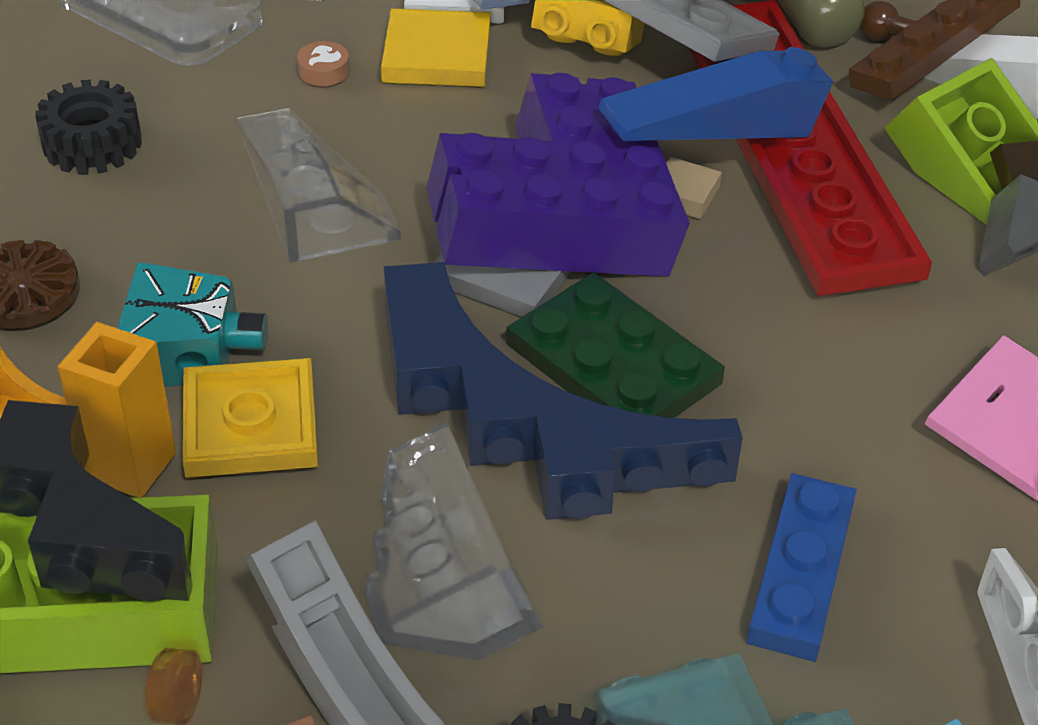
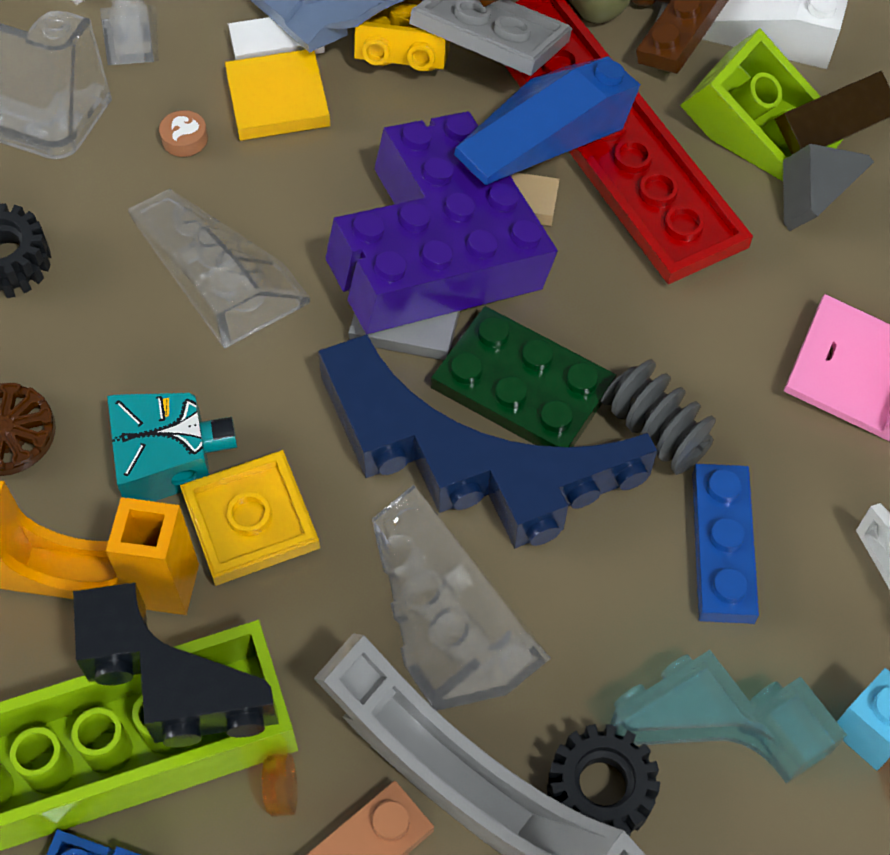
camera: 15 degrees left, 15 degrees up
(773, 419) = (659, 415): none -> dark grey piece

